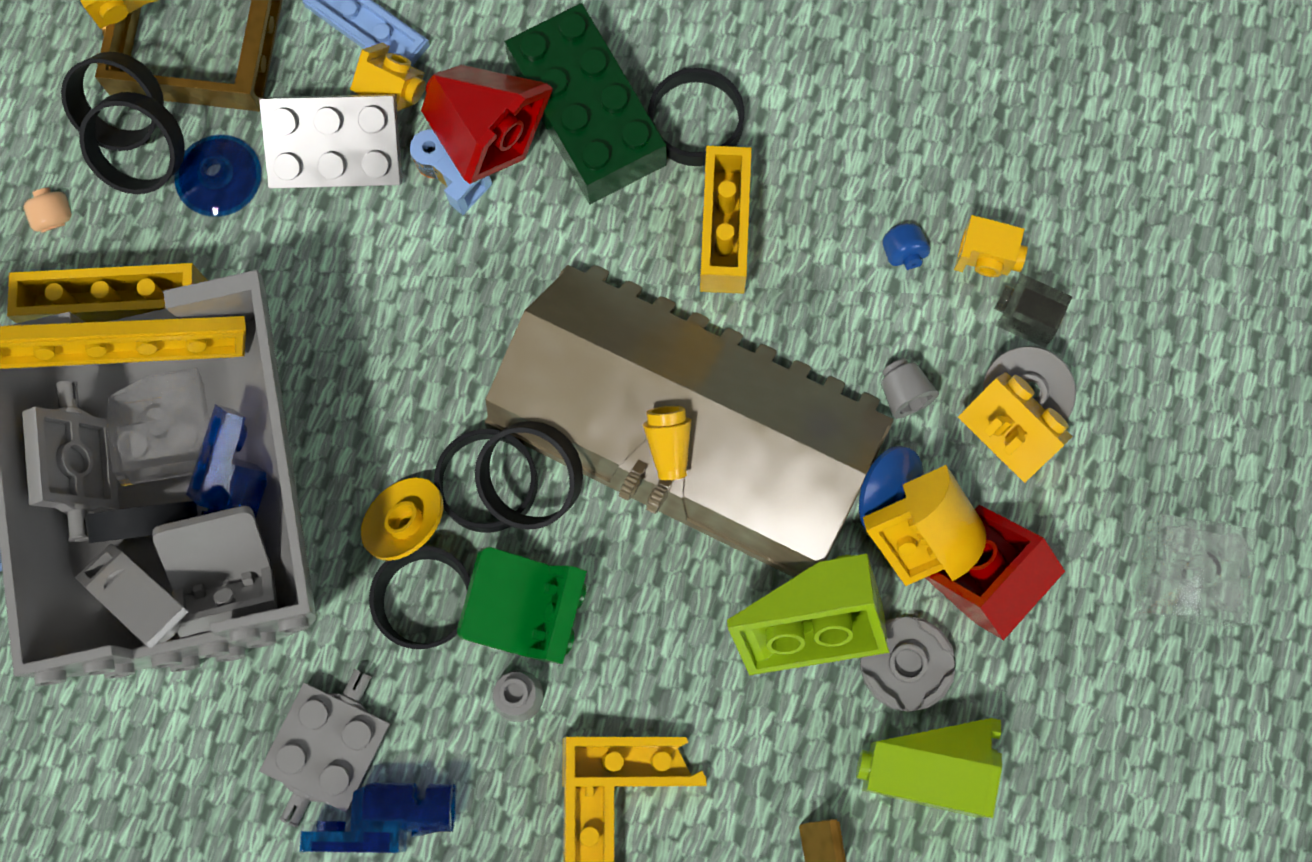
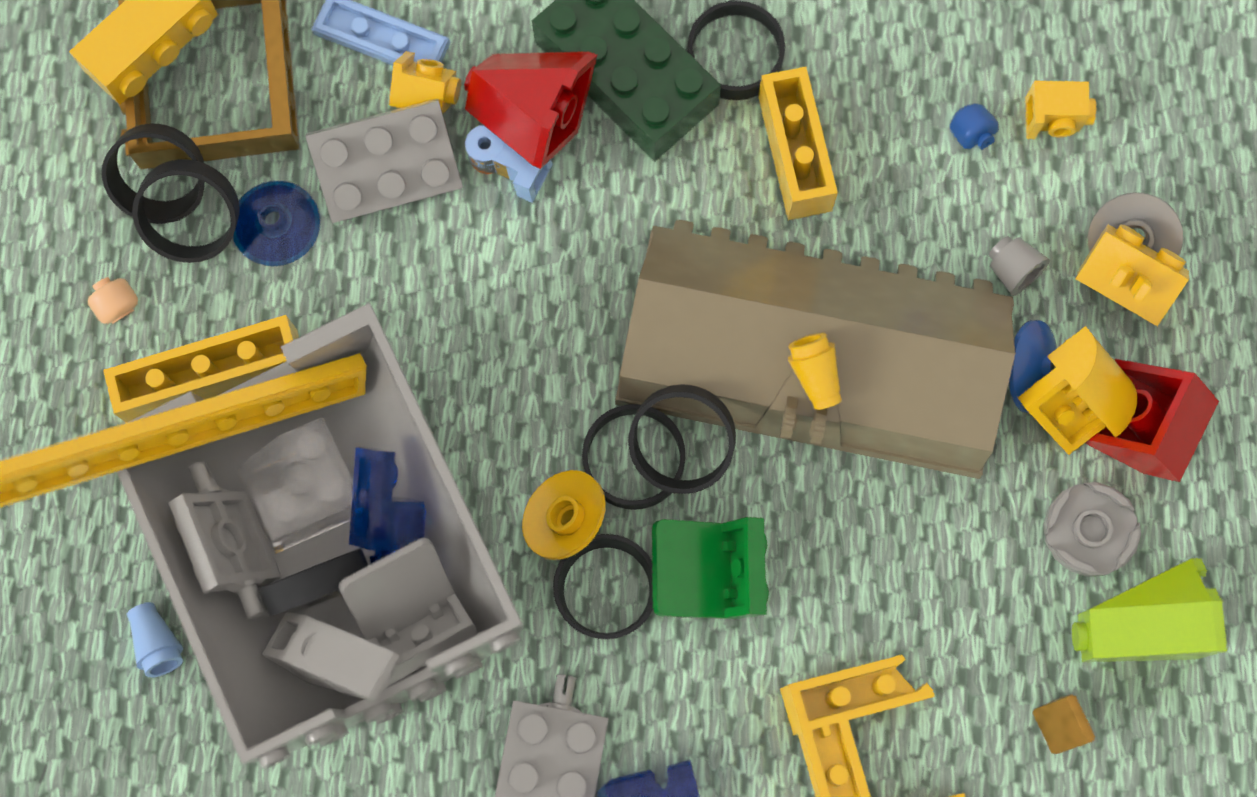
camera: 15 degrees left, 0 degrees up
(517, 696) = (724, 658): light grey hat -> none
(813, 619) = (998, 507): lime slope -> none
(1032, 310) = (1115, 159): clear smoke brick -> none

